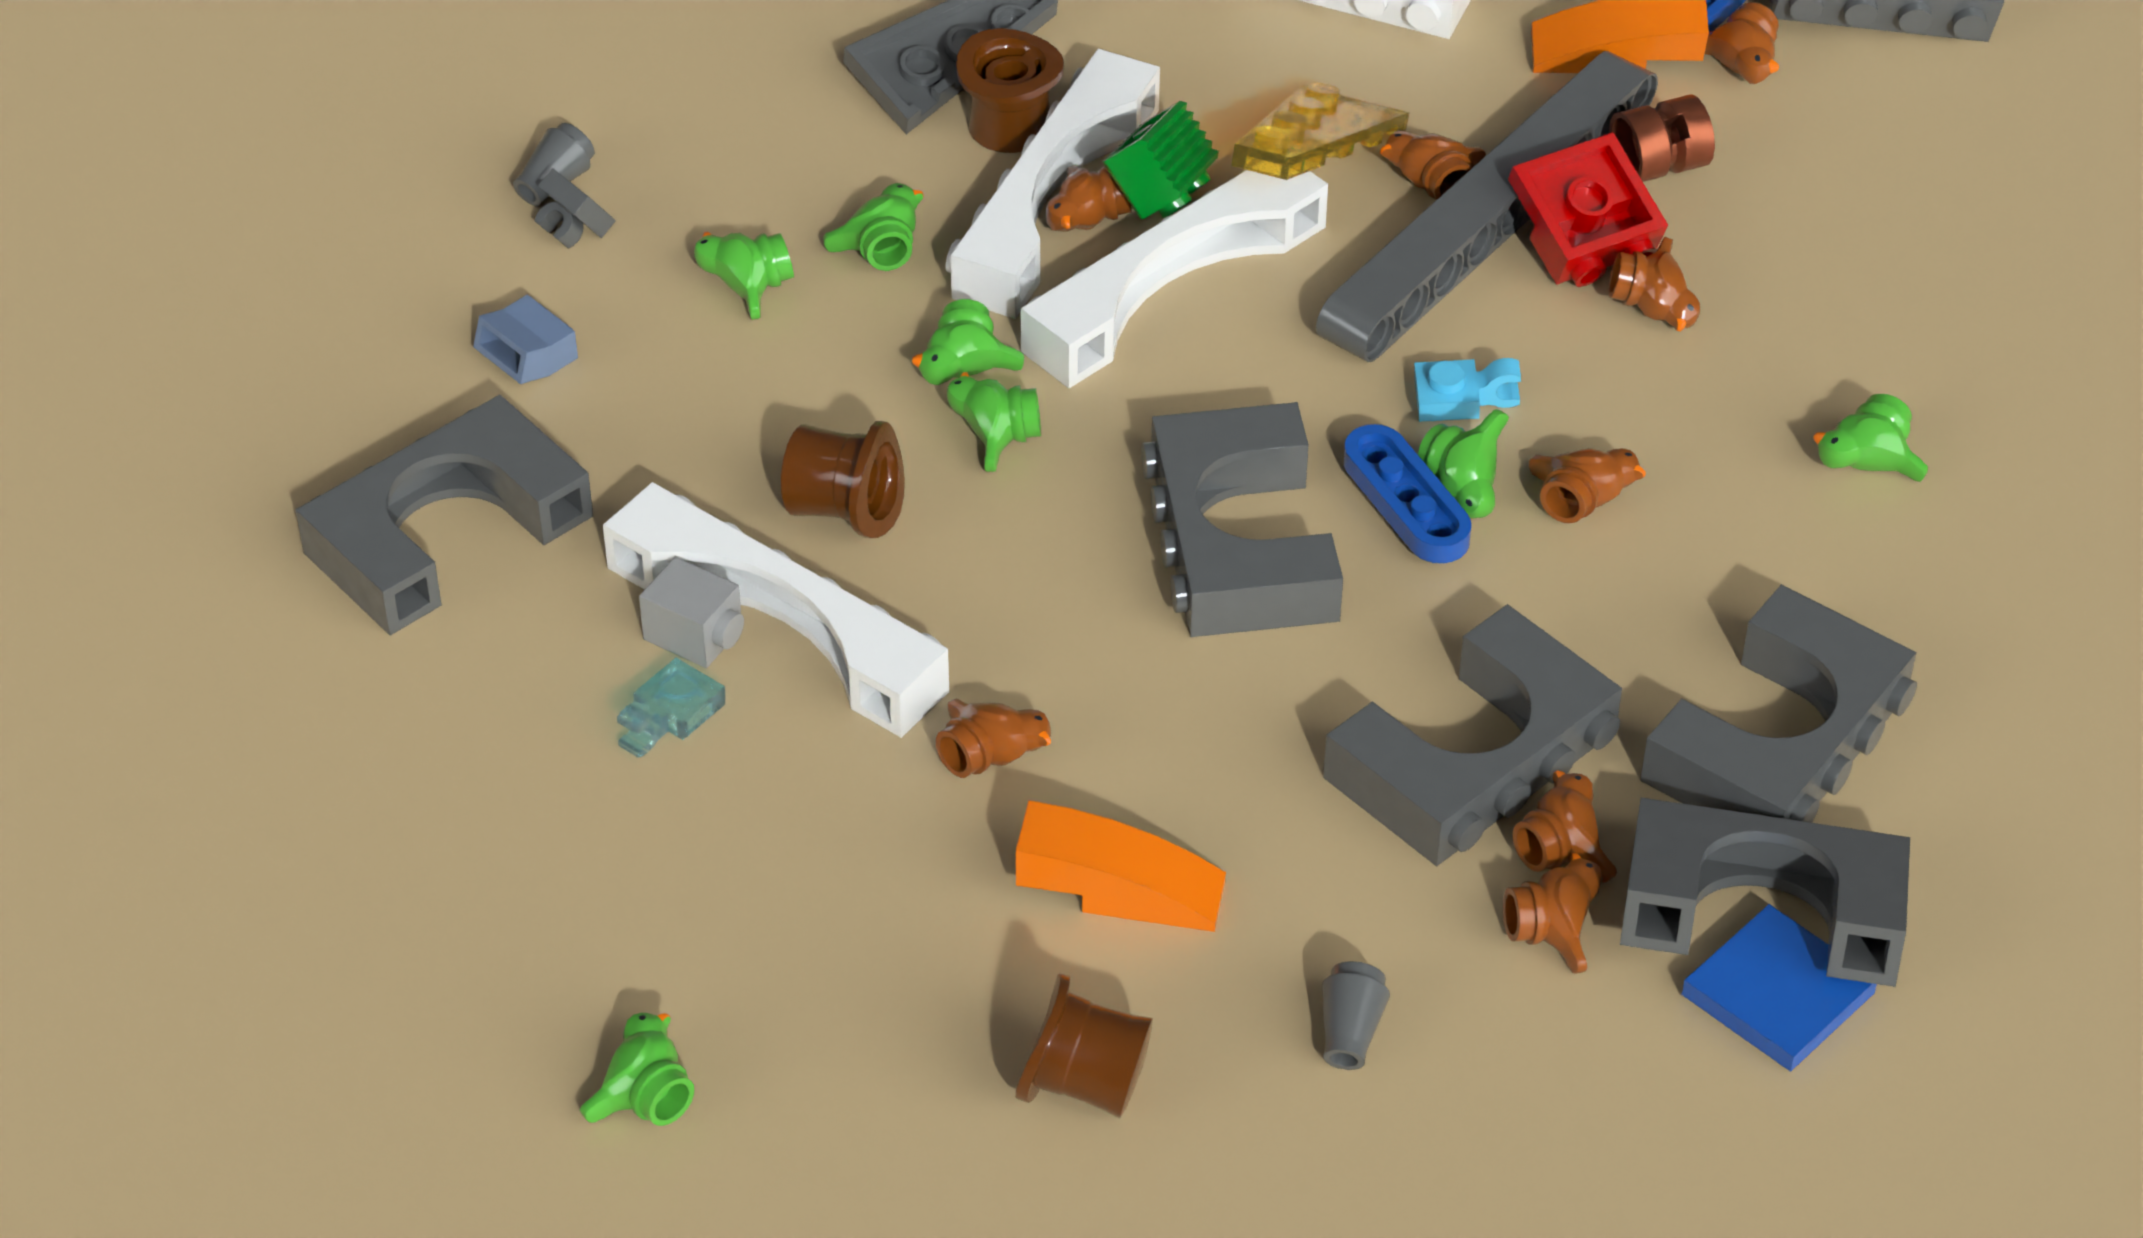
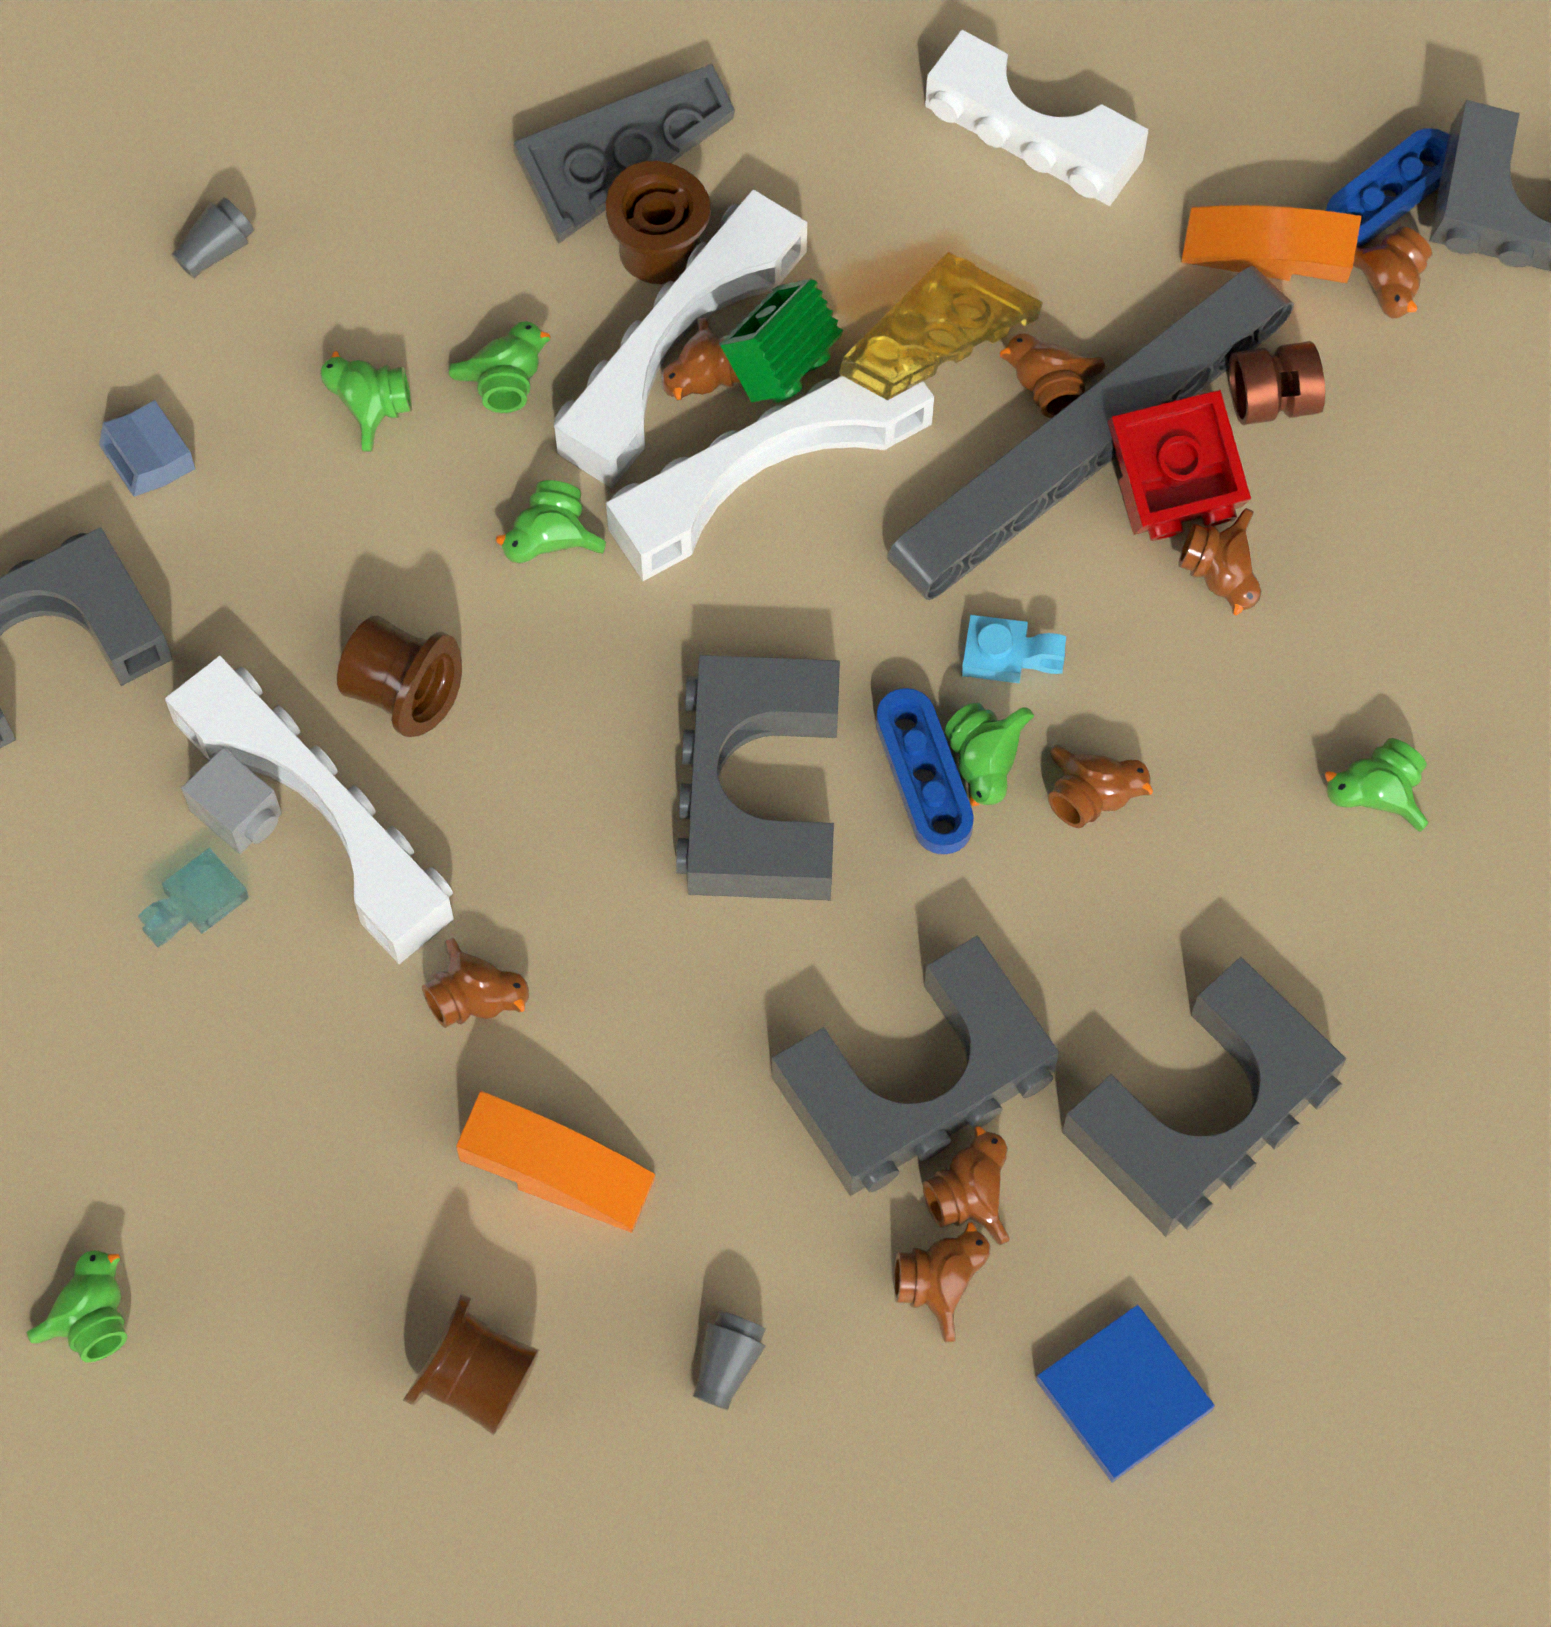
camera: 10 degrees right, 20 degrees up
(572, 208) = (222, 293): dark grey tile -> none
(995, 413) = (562, 613): bright green animal -> none
(1842, 872) = (1216, 1289): dark grey arch -> none

